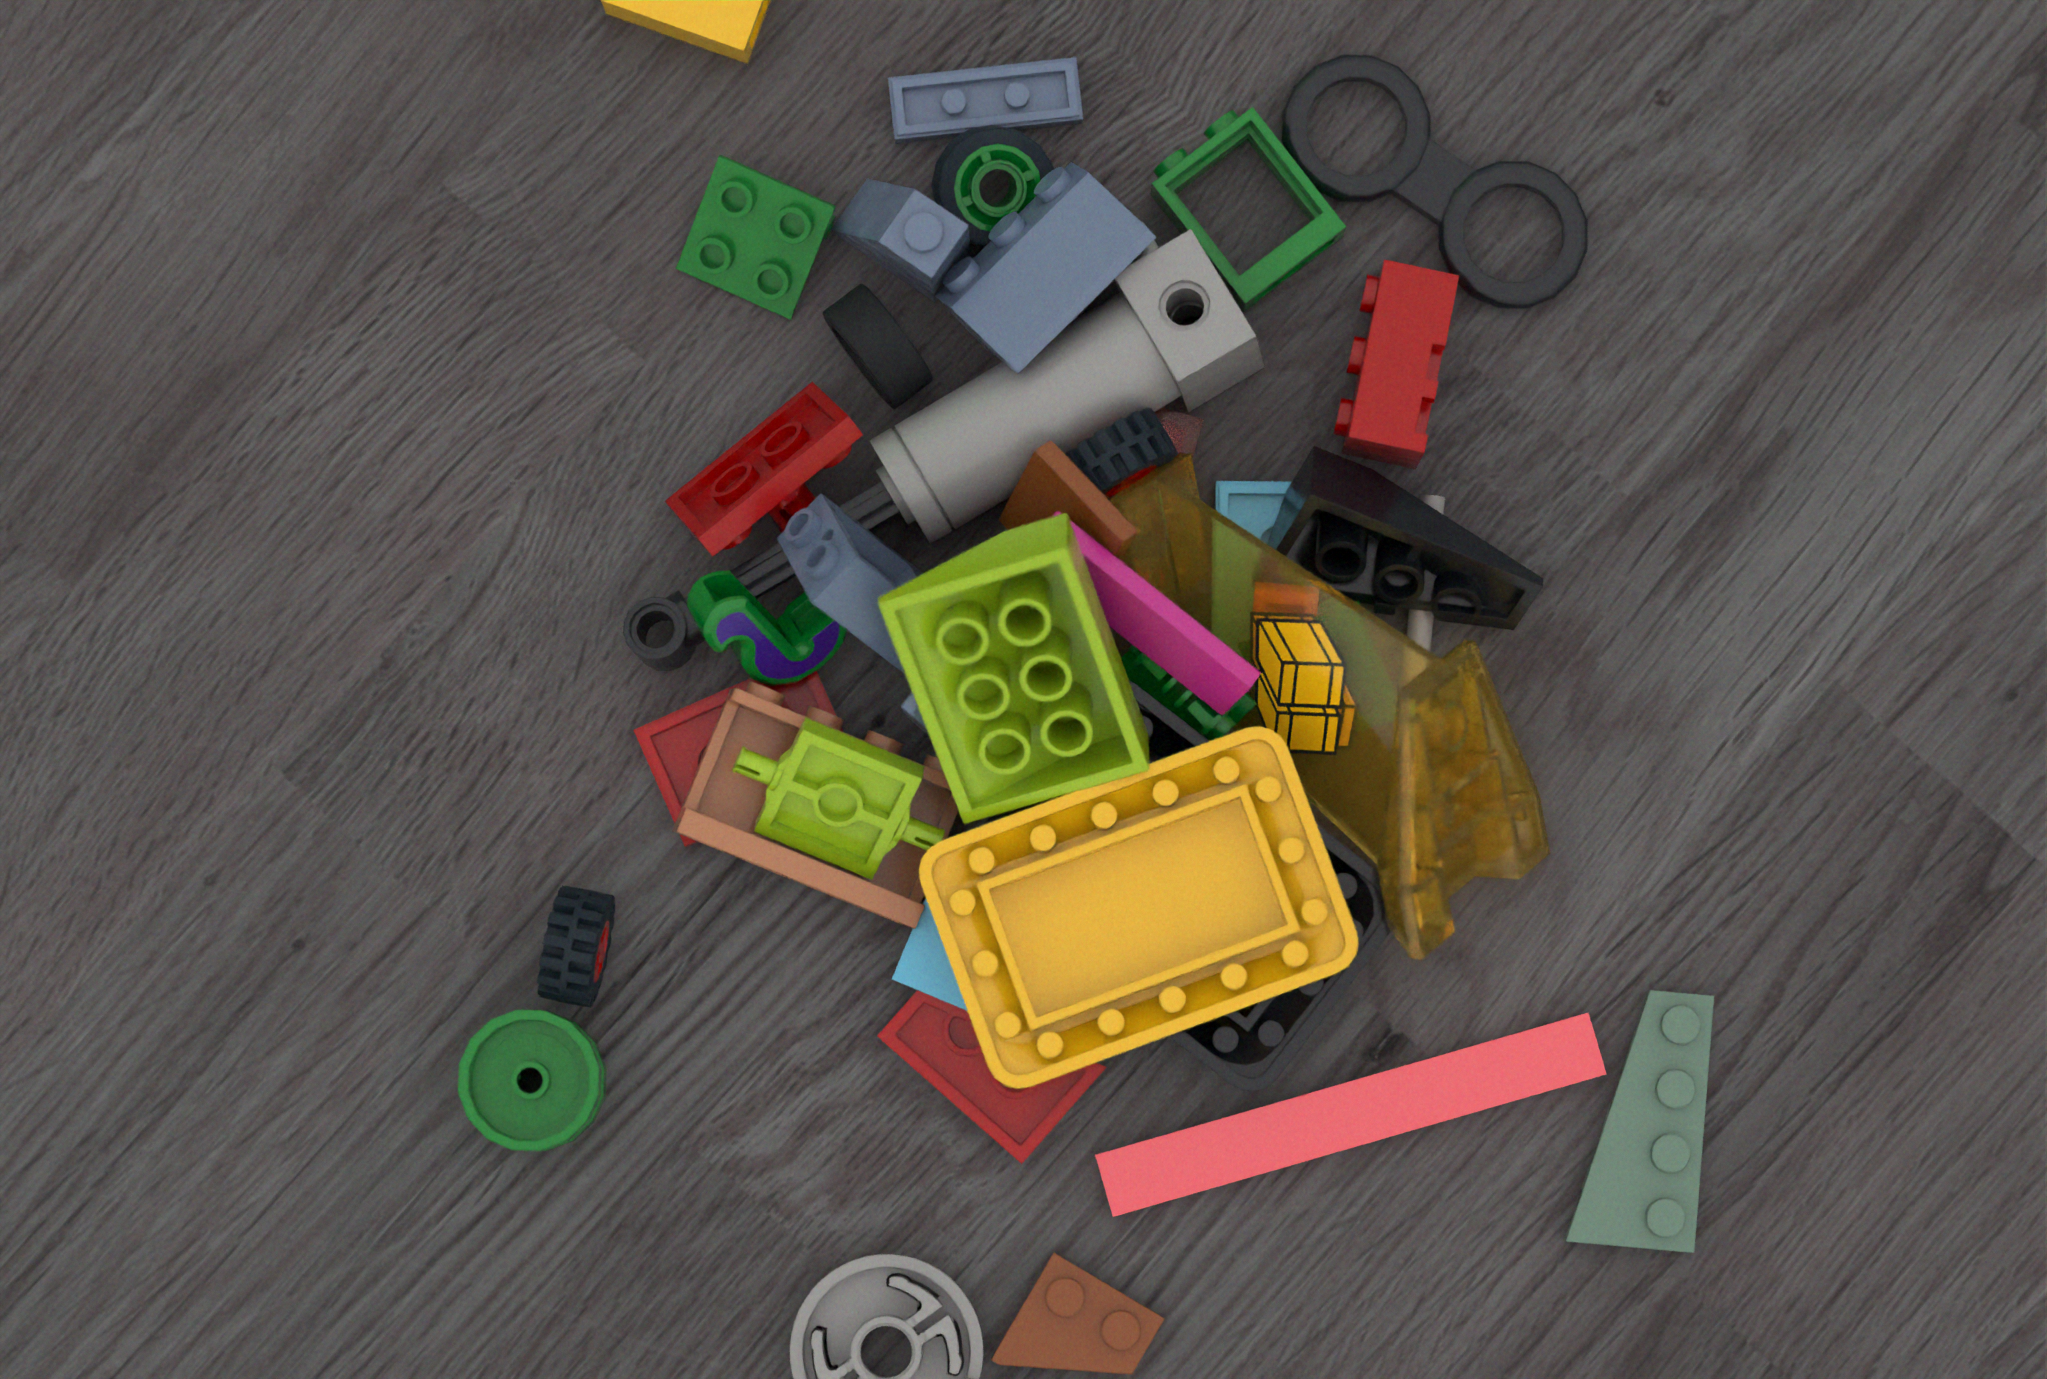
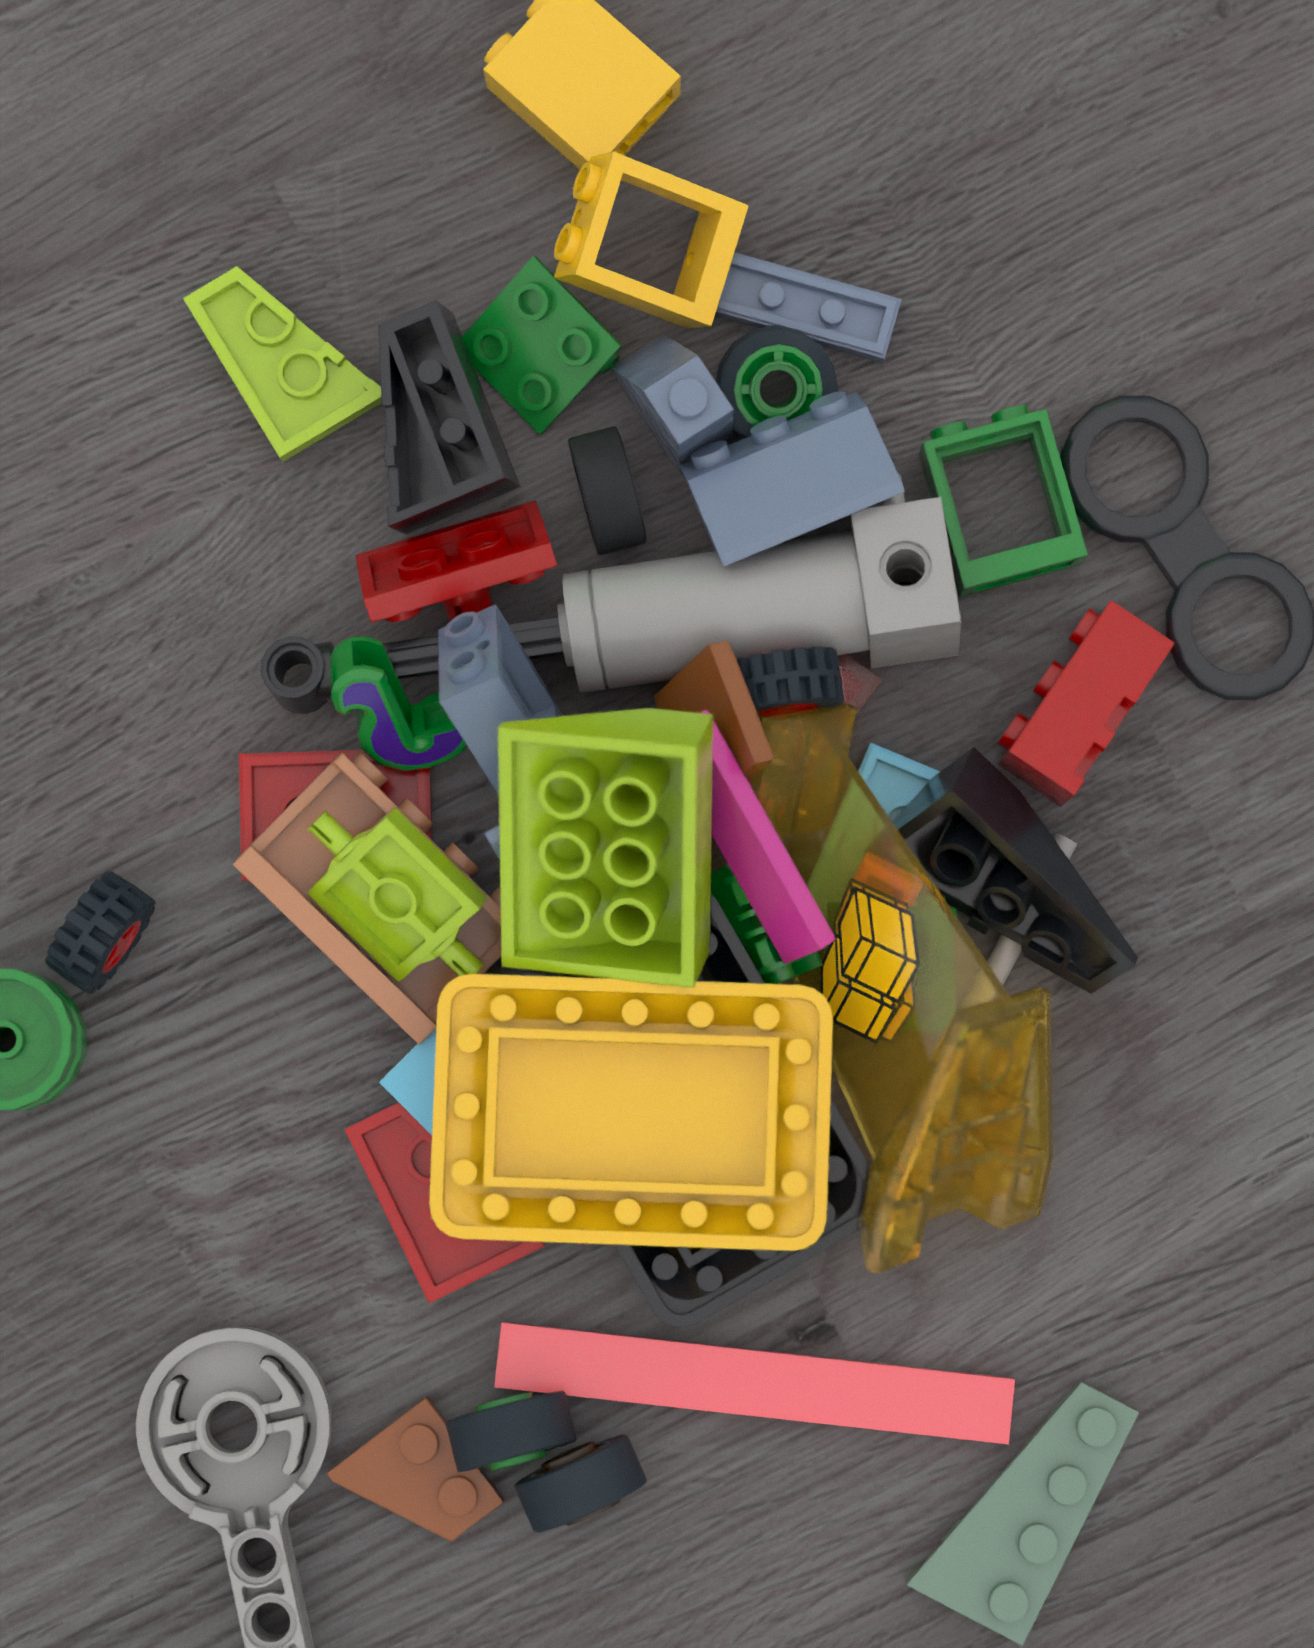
camera: 25 degrees right, 0 degrees up
(523, 354) = (279, 365): none -> lime wing
(695, 347) = (438, 422): none -> black wedge
(879, 91) = (706, 257): none -> yellow window
(1146, 1248) = (511, 1431): none -> black wheel
(1229, 1269) = (580, 1483): none -> black wheel

